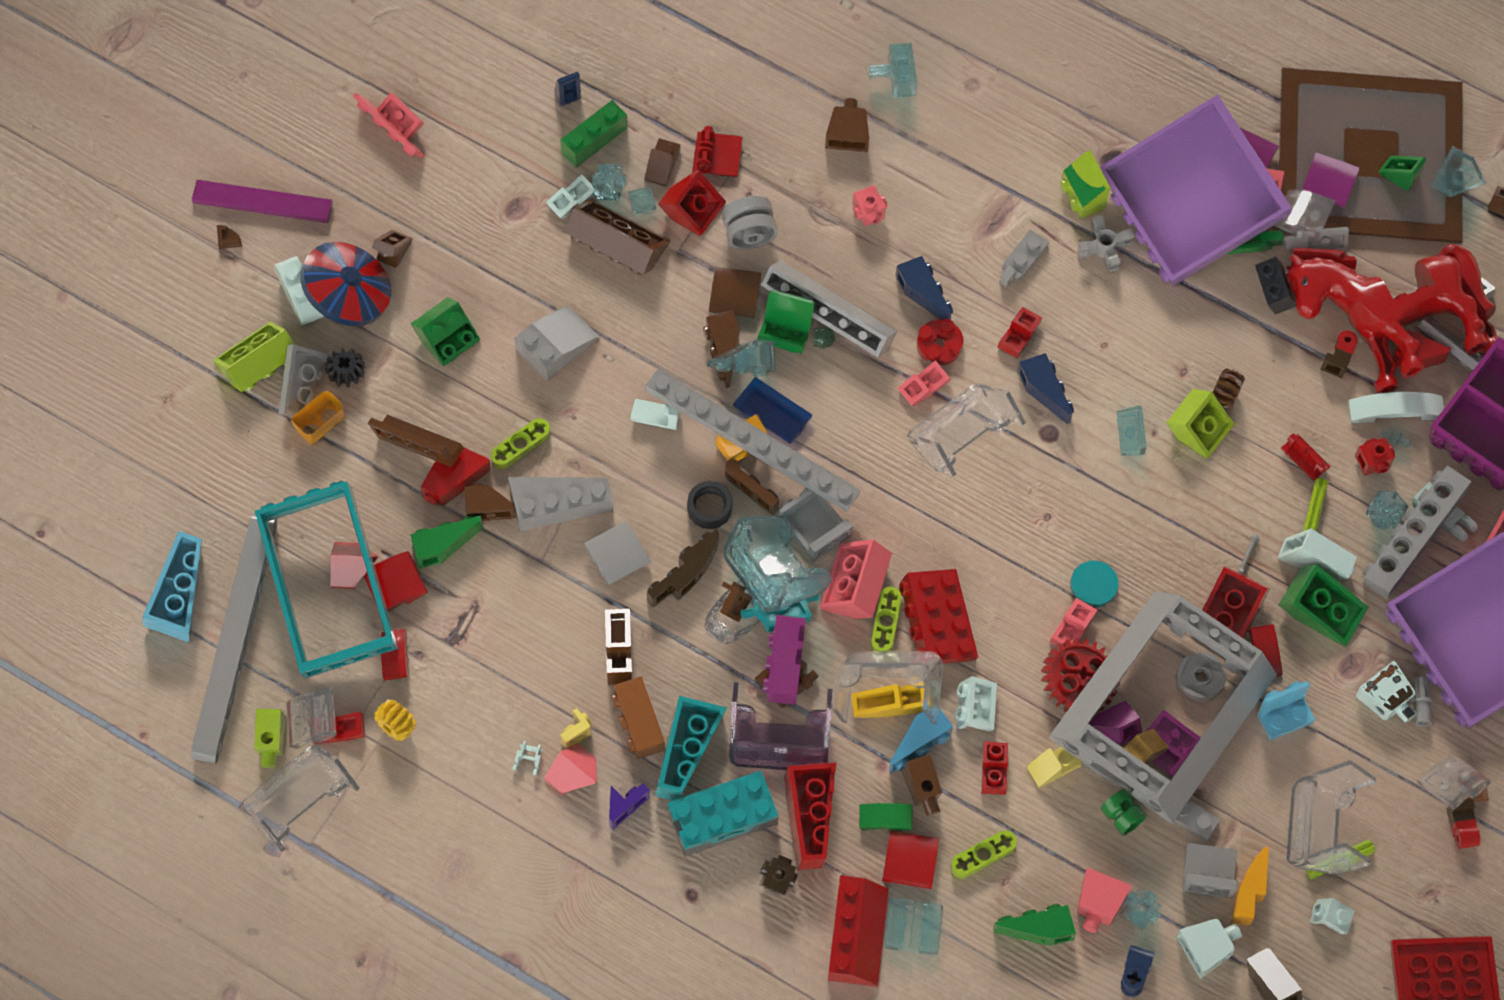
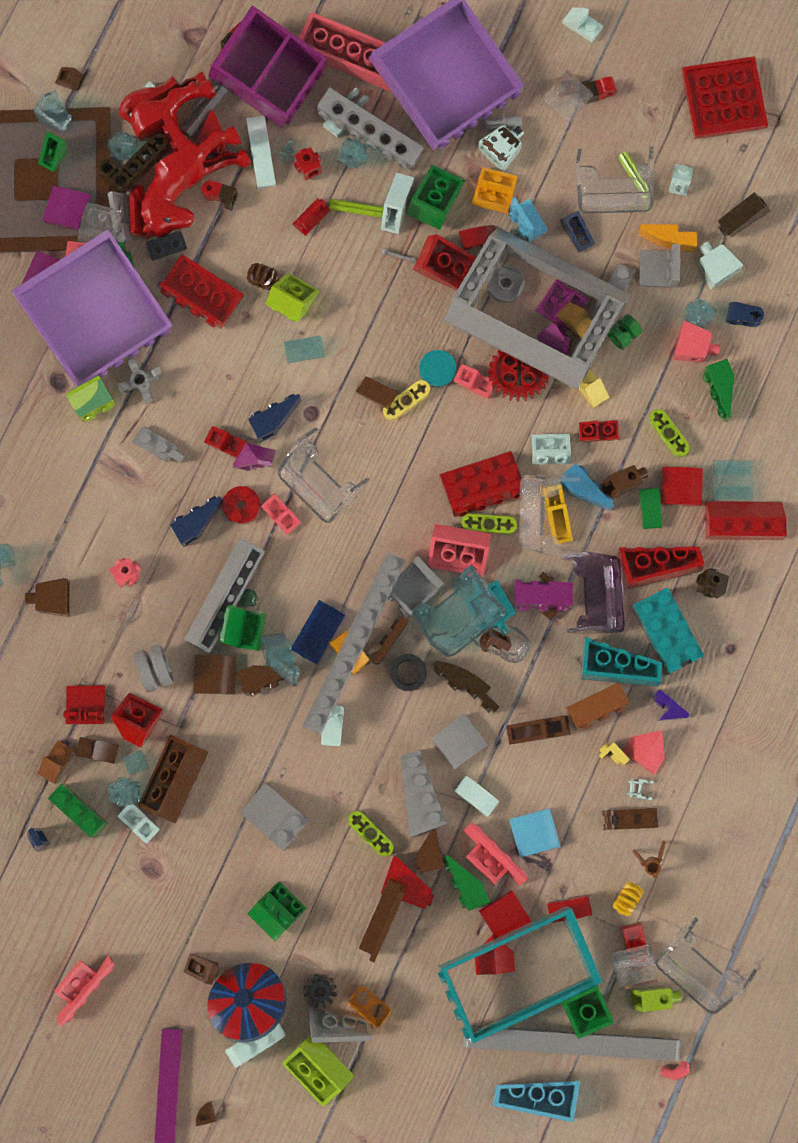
camera: 90 degrees left, 15 degrees up
(176, 754) = (677, 1073): none -> coral arm
(269, 655) = (587, 1012): none -> green slope
(431, 746) = (652, 864): none -> dark orange plant
(467, 569) = (491, 859): none -> coral bracket
(492, 742) = (631, 819): none -> reddish brown plate
(493, 627) = (534, 832): none -> medium azure slope
(547, 564) = (477, 796): none -> light aqua slope
(652, 117) = (55, 762): none -> dark orange slope
(997, 358) = (254, 456): none -> magenta slope
(1057, 532) = (407, 392): none -> light yellow beam
(1068, 506) = (376, 392): none -> reddish brown tile
(1213, 320) = (200, 292): none -> red bracket
(1288, 775) = (568, 228): none -> dark blue slope
(1331, 680) = (495, 190): none -> light orange slope
(1388, 260) = (135, 161): none -> dark brown beam
(1407, 249) = (122, 145): none -> clear light blue brick

